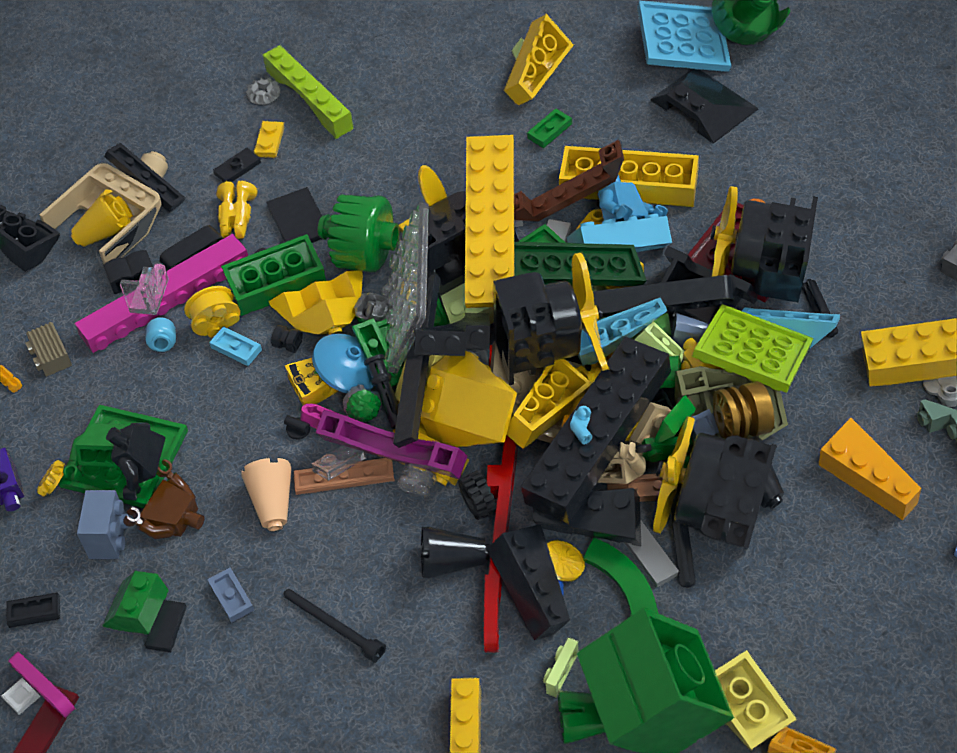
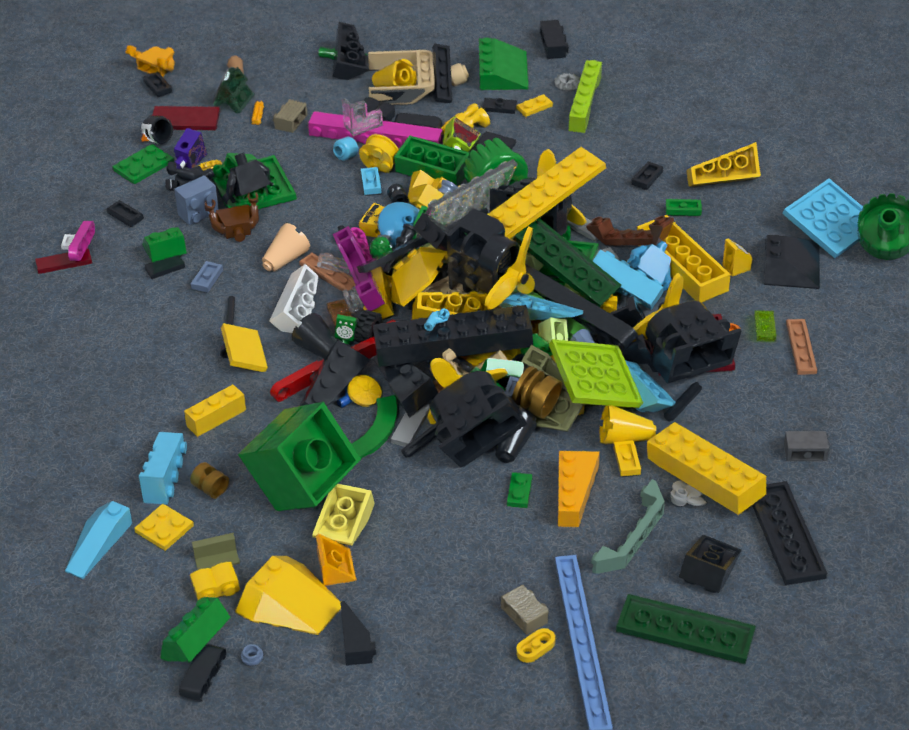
camera: 45 degrees right, 10 degrees down
(64, 517) = (184, 176): none -> black torso
(179, 125) = (502, 66): none -> green slope
(189, 59) = (553, 39): none -> black brick
(260, 227) = (460, 135): none -> torso
(335, 289) = (447, 186): none -> sand blue wheel
(363, 535) = (295, 300): none -> white wedge
(390, 631) = (244, 348): none -> yellow tile
(422, 508) = (338, 307): none -> clear orange plate
(460, 513) = (345, 328): none -> green slope
(474, 121) = (647, 175): none -> black plate
(669, 138) = (736, 258): none -> yellow slope
(775, 179) = (765, 326): none -> clear neon green plate
(821, 378) = (624, 426): none -> yellow cone
(825, 173) = (801, 346): none -> nougat tile
(828, 519) = (519, 490): none -> green plate
(862, 402) = (627, 458): none -> yellow plate

